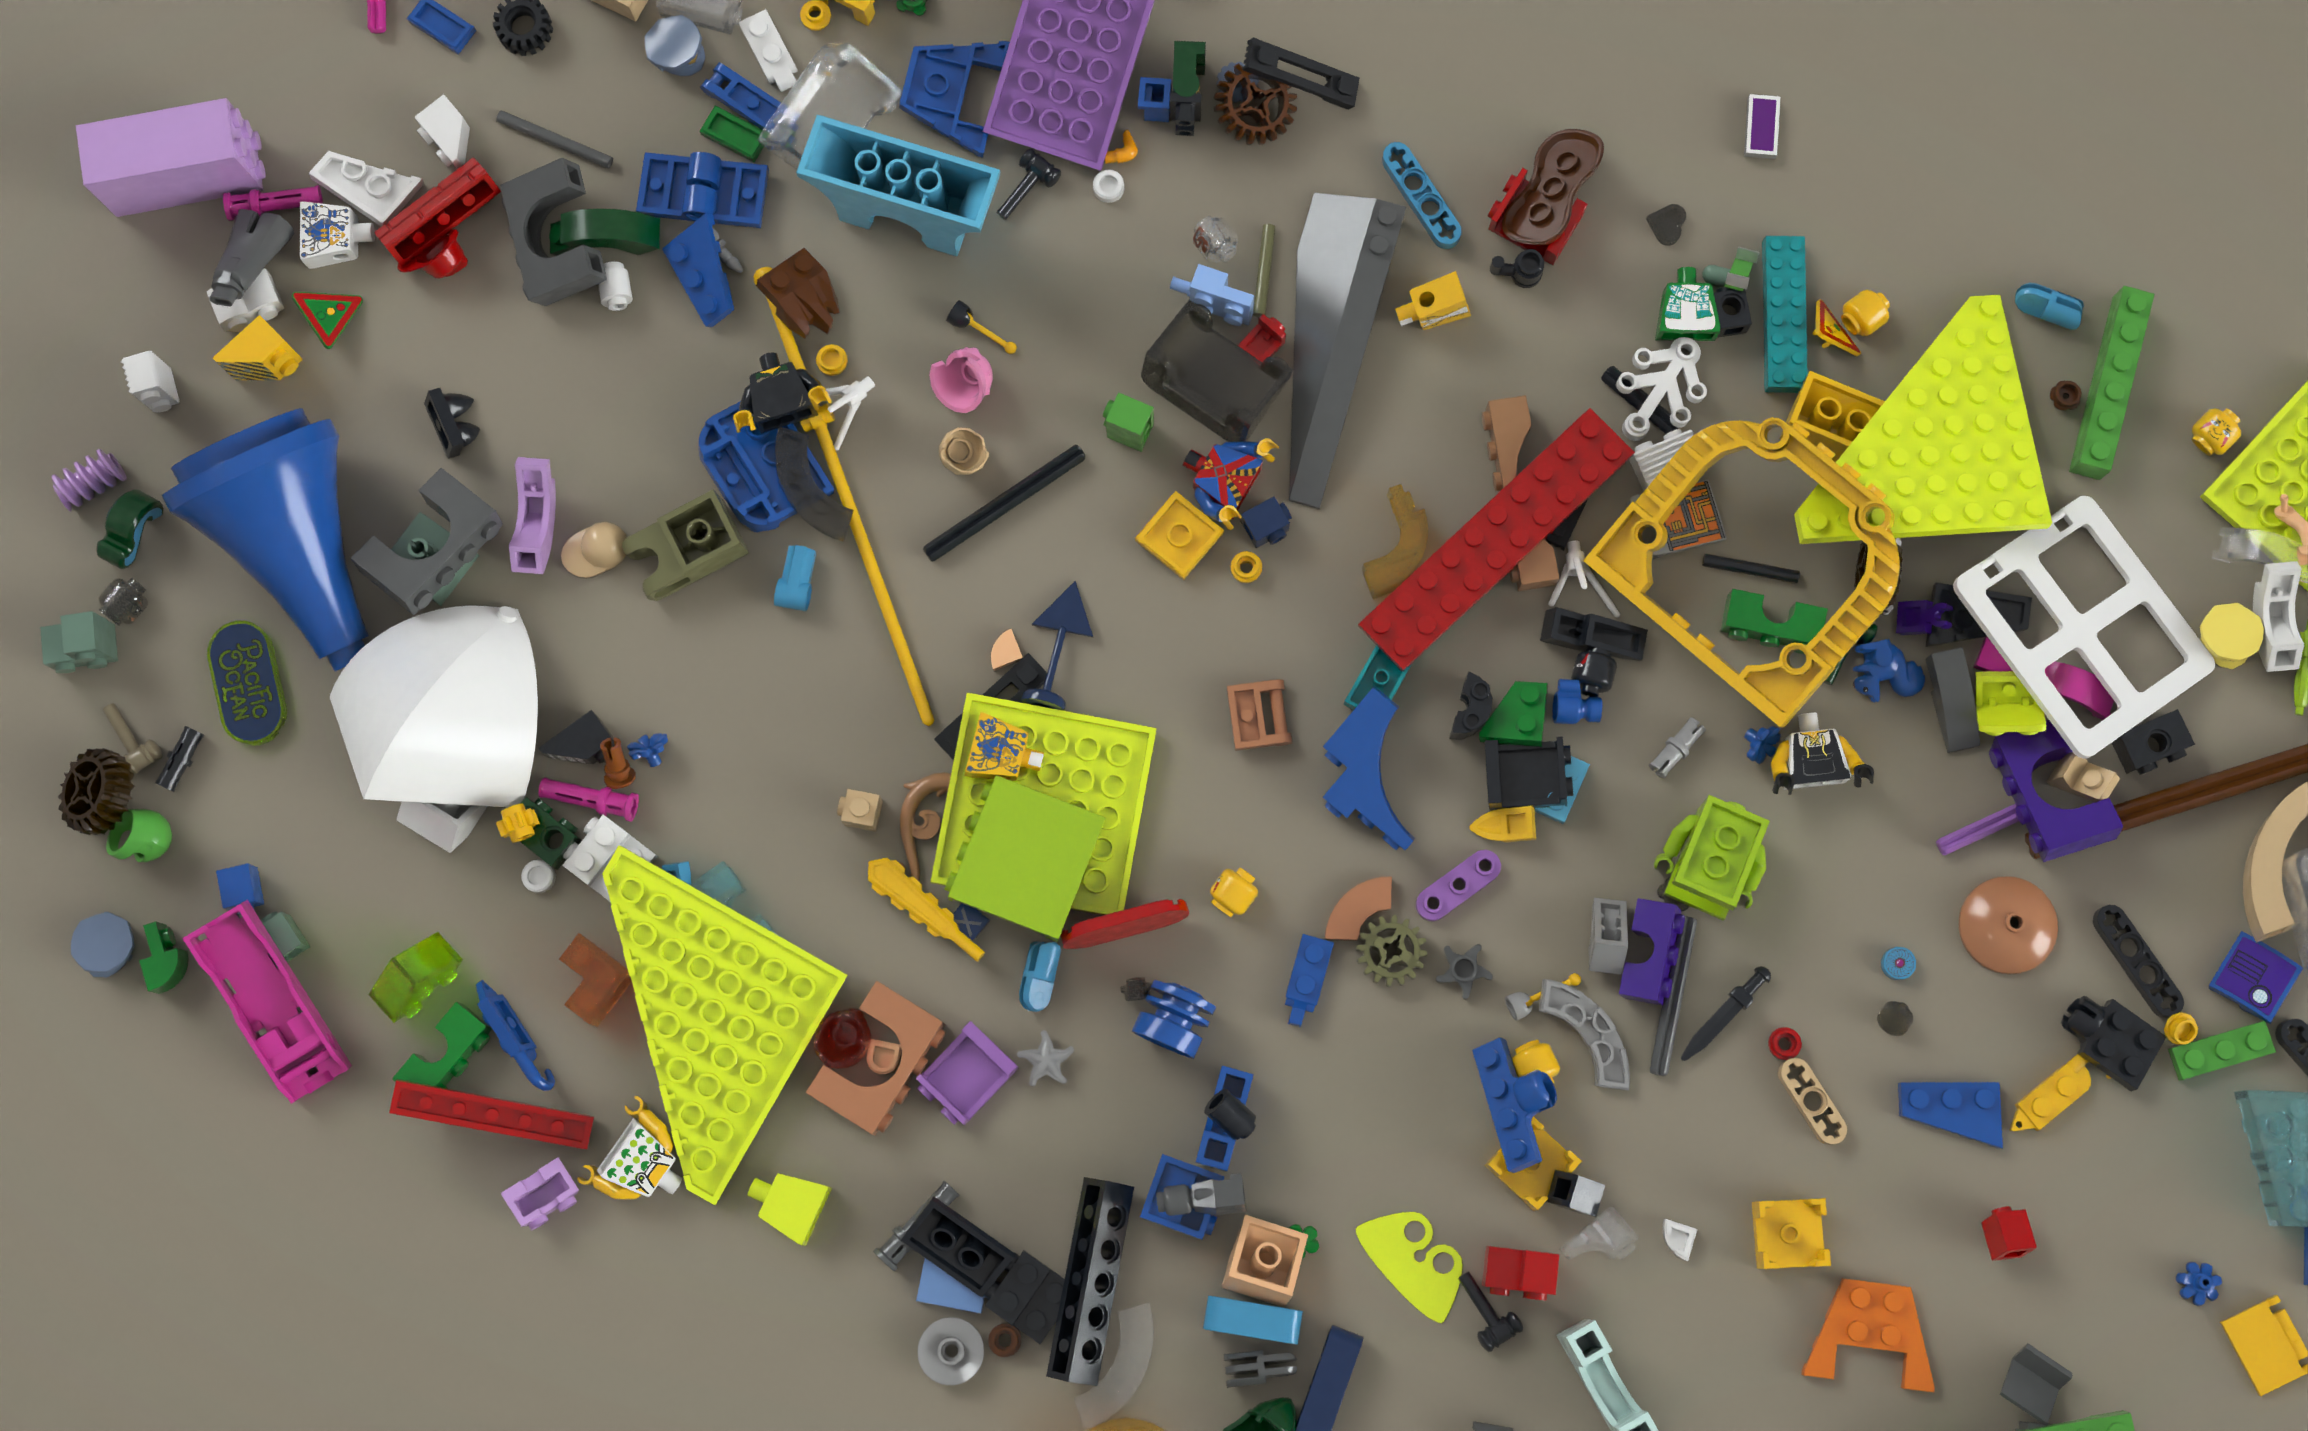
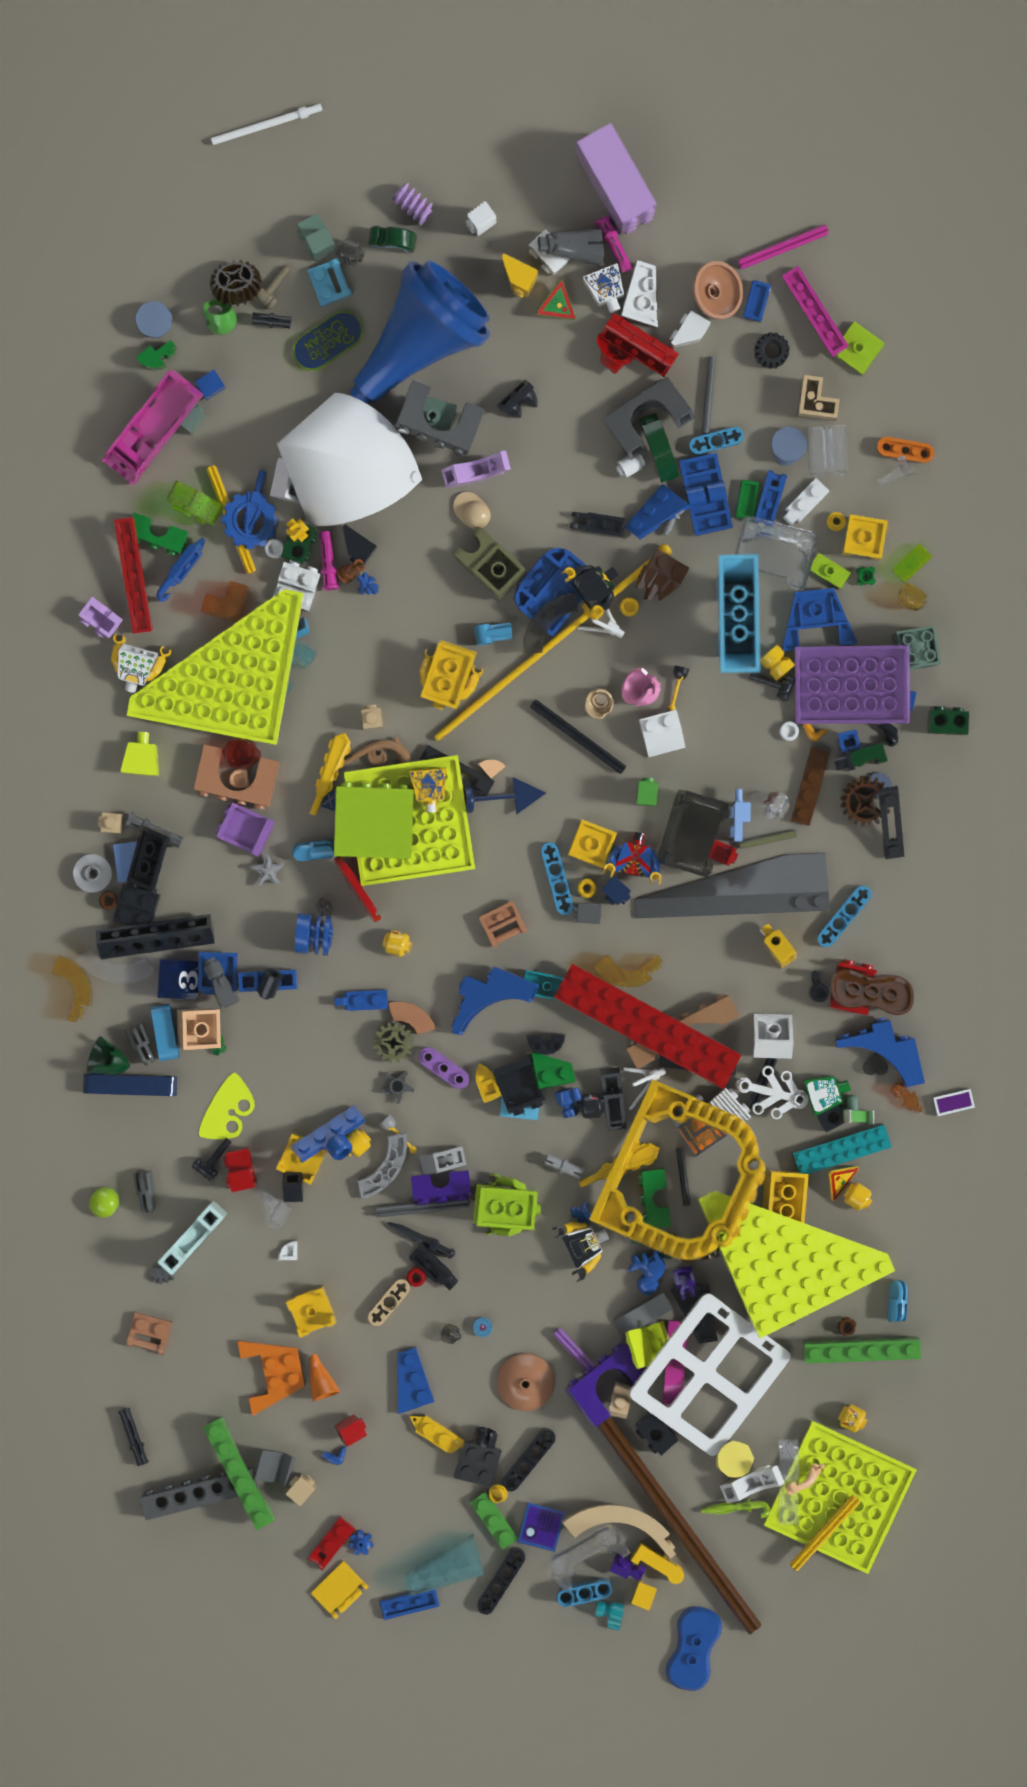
camera: 70 degrees right, 10 degrees up
(158, 660) = (323, 284): none -> medium azure plate
(400, 69) = (725, 289): none -> nougat dish
(458, 884) = (254, 505): none -> blue bar
(466, 929) = (223, 499): none -> yellow axle
(617, 170) = (701, 439): none -> dark azure beam
(688, 362) = (600, 524): none -> black hinge
(837, 663) = (446, 675): none -> yellow torso
(879, 1291) = (111, 823): none -> tan brick
(890, 46) = (829, 571): none -> lime plate
(1003, 158) = (776, 662): none -> yellow wheel
(1044, 372) = (662, 733): none -> white slope
(1161, 37) = (891, 733): none -> black arm
(1173, 1266) = (178, 979): none -> clear blue slope
(1204, 181) = (810, 786): none -> reddish brown plate
(1215, 613) = (553, 879): none -> dark azure beam
(1287, 576) = (587, 913): none -> dark grey brick
(1573, 358) = (772, 1036): none -> white slope
(1658, 179) = (881, 1039): none -> blue arch
(1701, 615) = (644, 1155): none -> yellow sword
(1739, 189) = (909, 1100): none -> clear orange piece
(1776, 1009) = (433, 1267): none -> black hinge
(1911, 1256) = (321, 1382): none -> orange hat
(2048, 1276) = (335, 1459): none -> blue animal
(2082, 1351) = (301, 1488): none -> tan brick
(2186, 1332) = (331, 1542): none -> red plate

